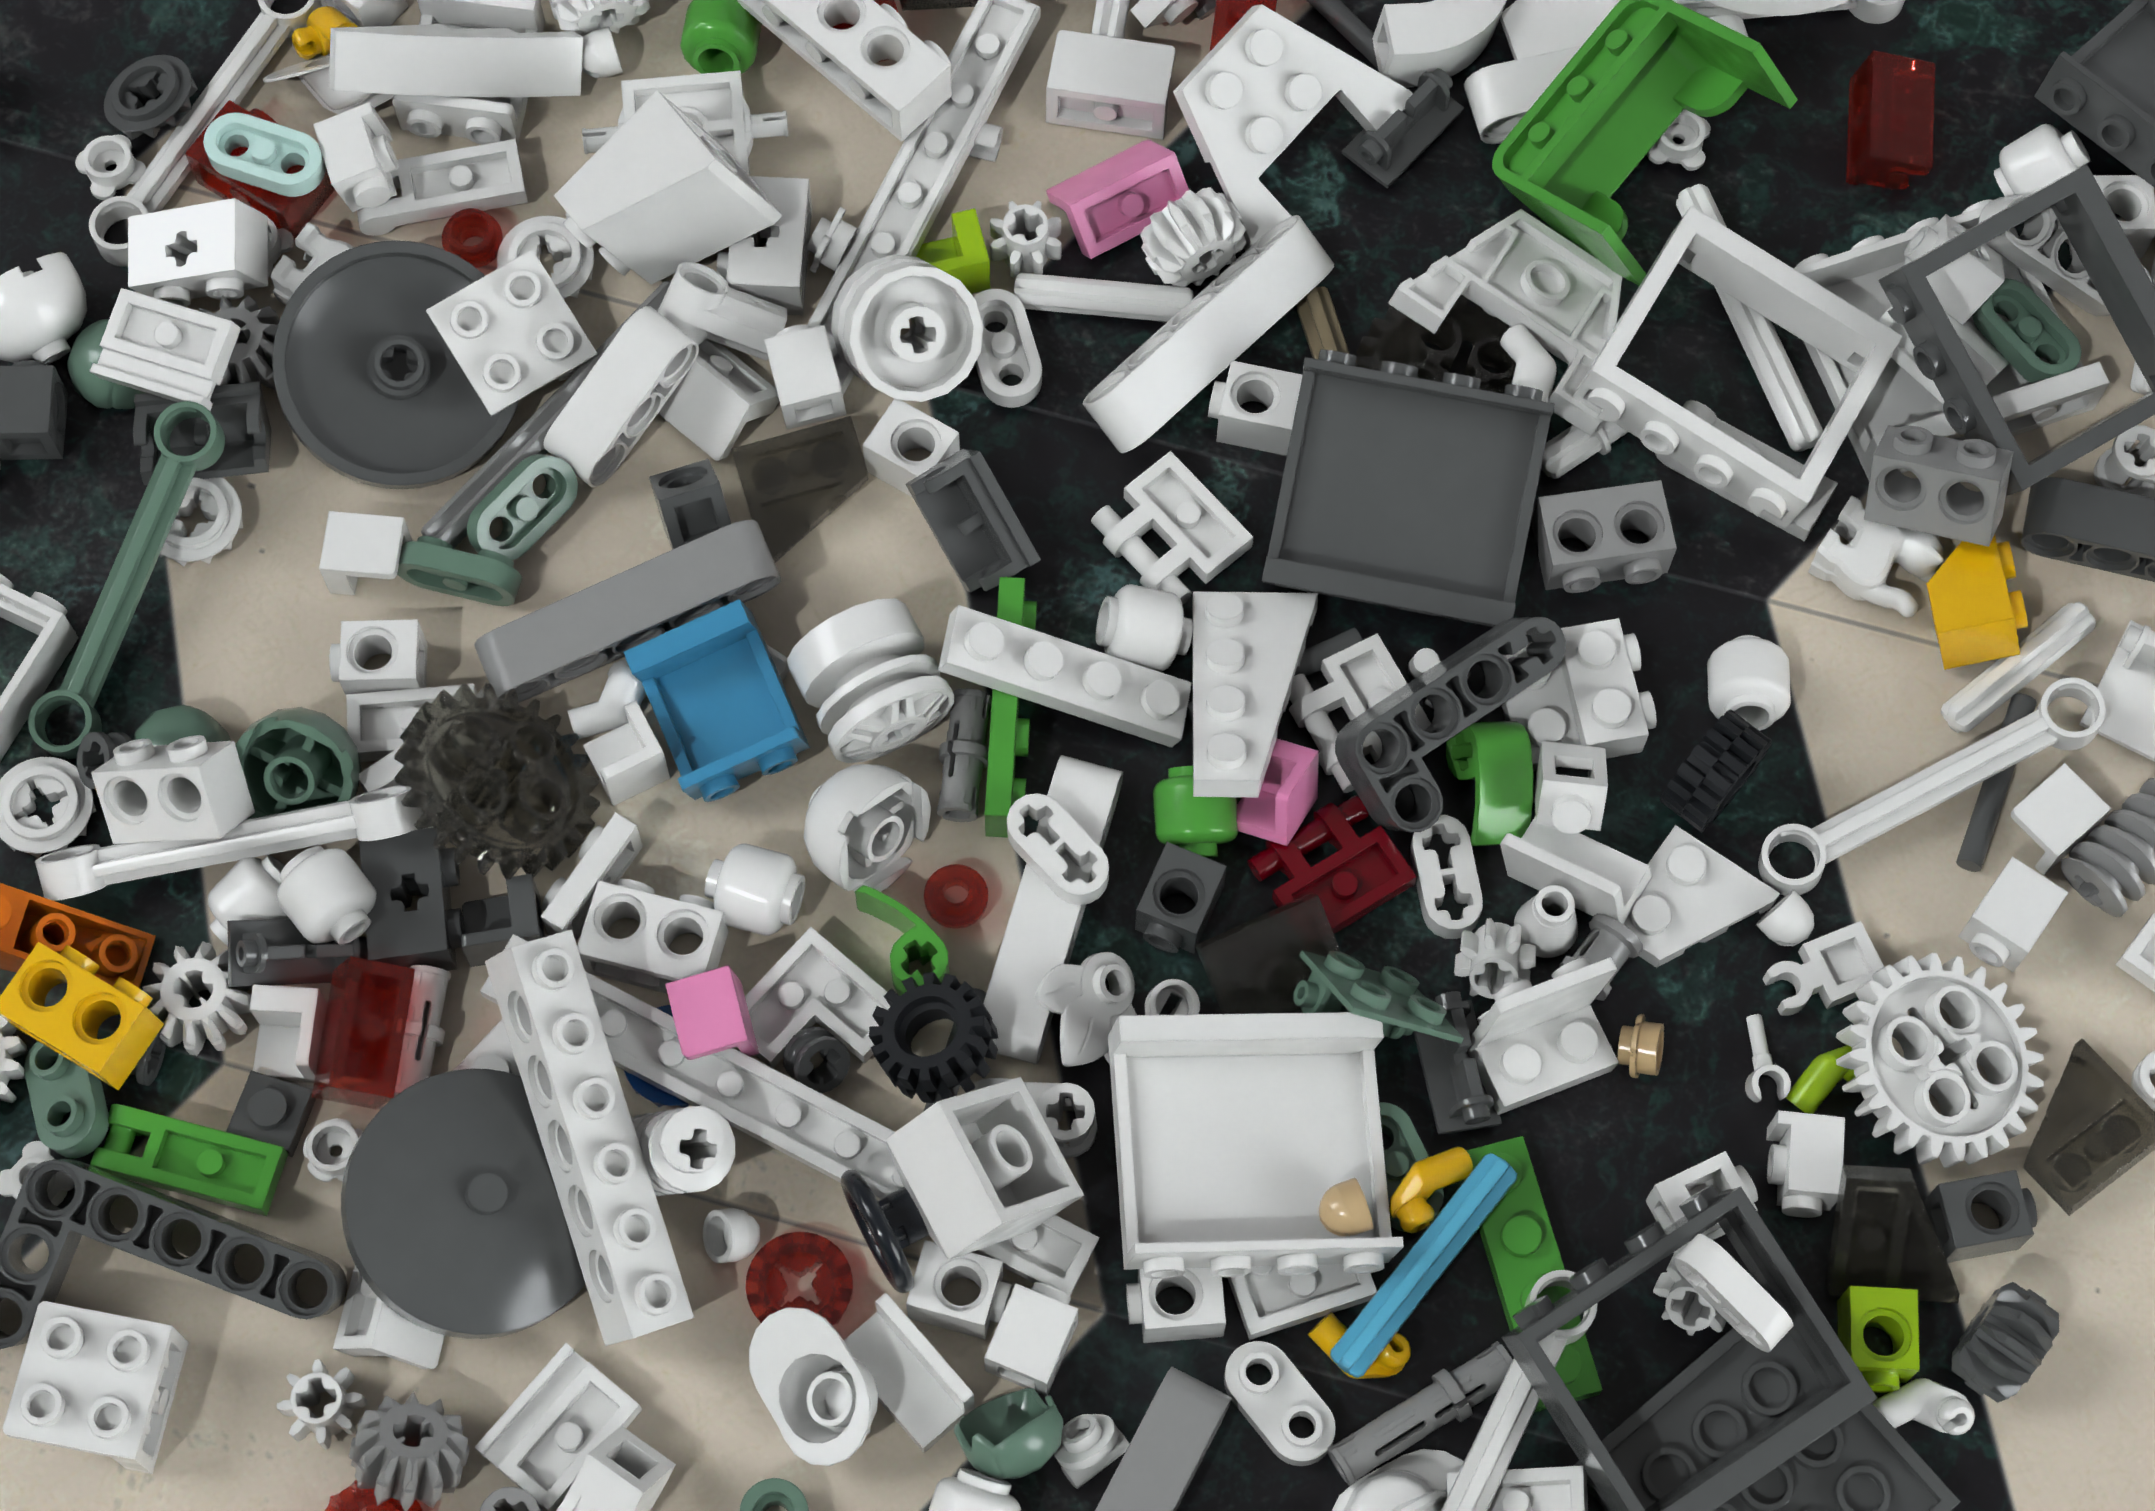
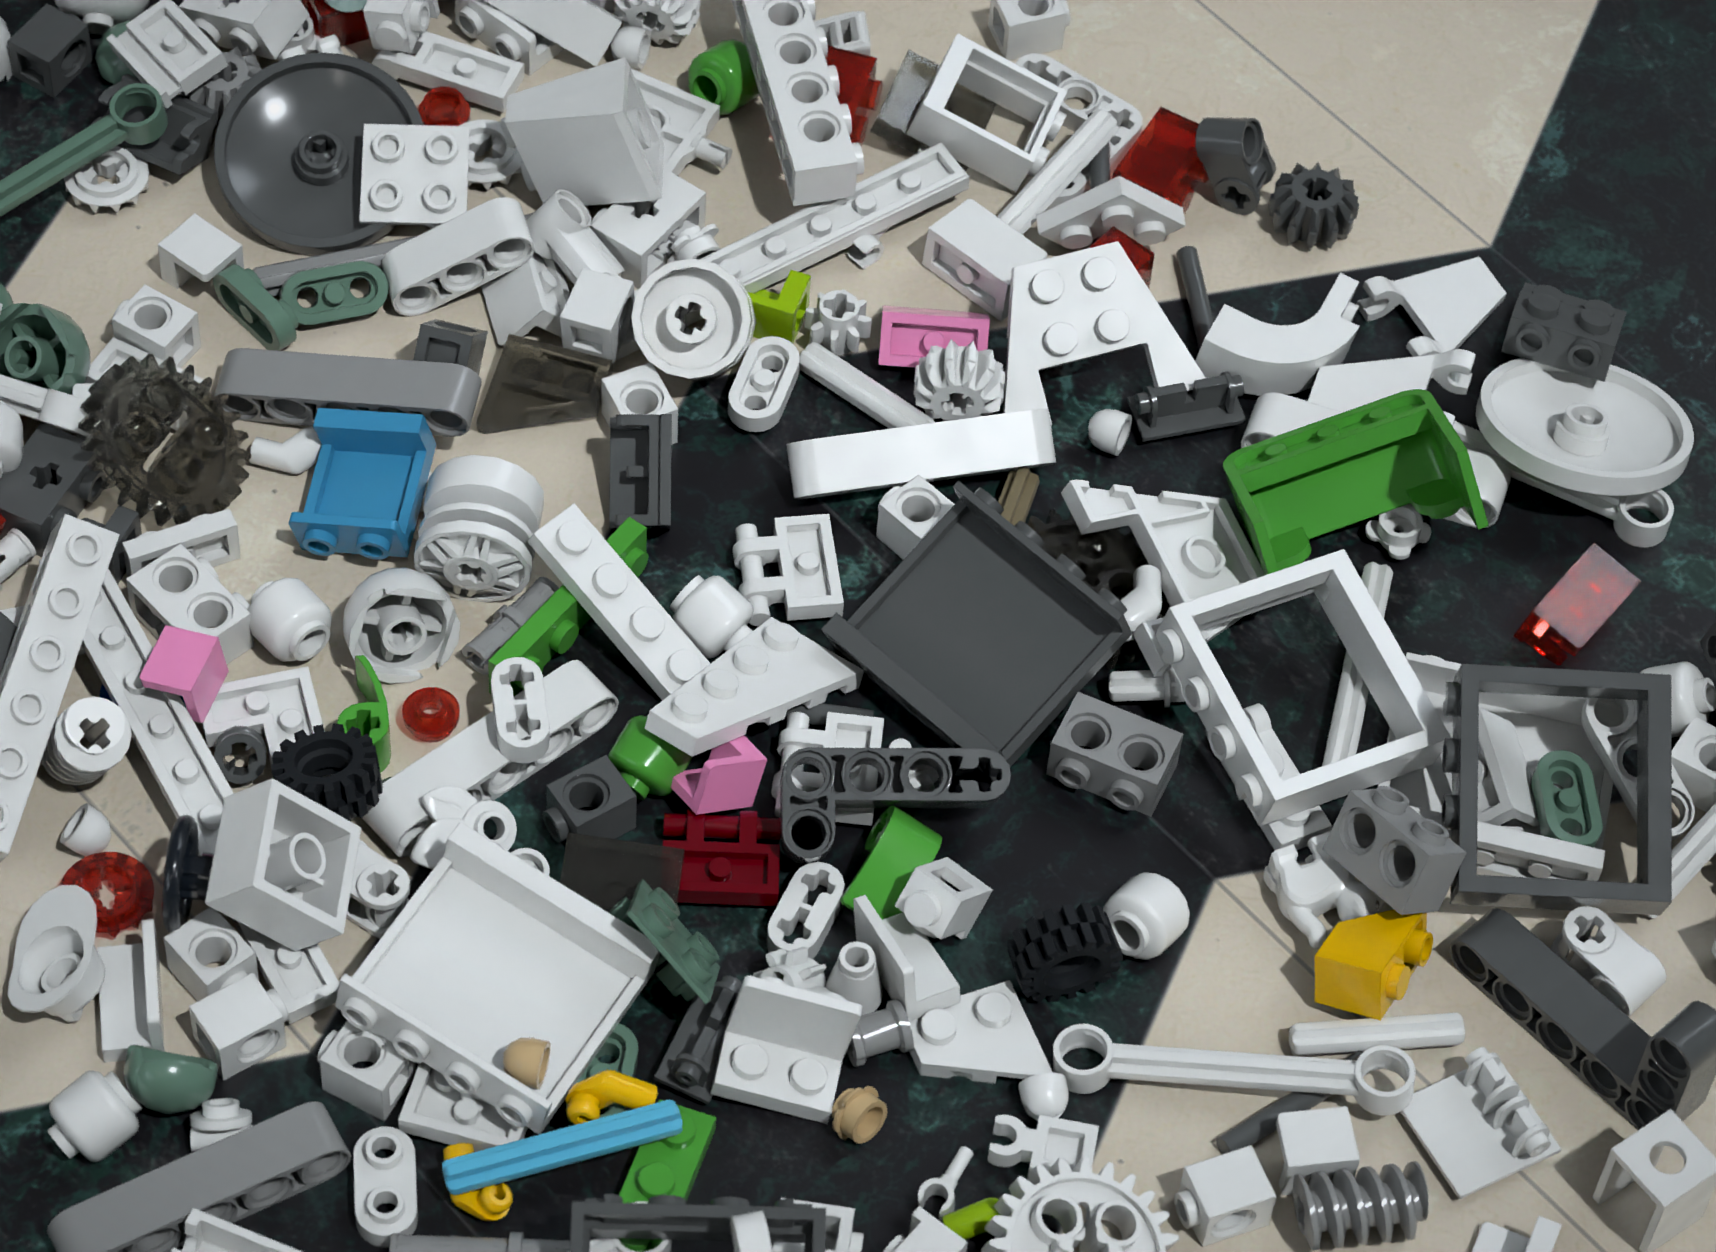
camera: 30 degrees right, 15 degrees down
(628, 758) = (273, 492): white panel -> none
(1352, 197) = (1109, 430): none -> white hinge
(1588, 695) = (1013, 850): white plate -> none
(1967, 280) = (1534, 725): white brick -> none

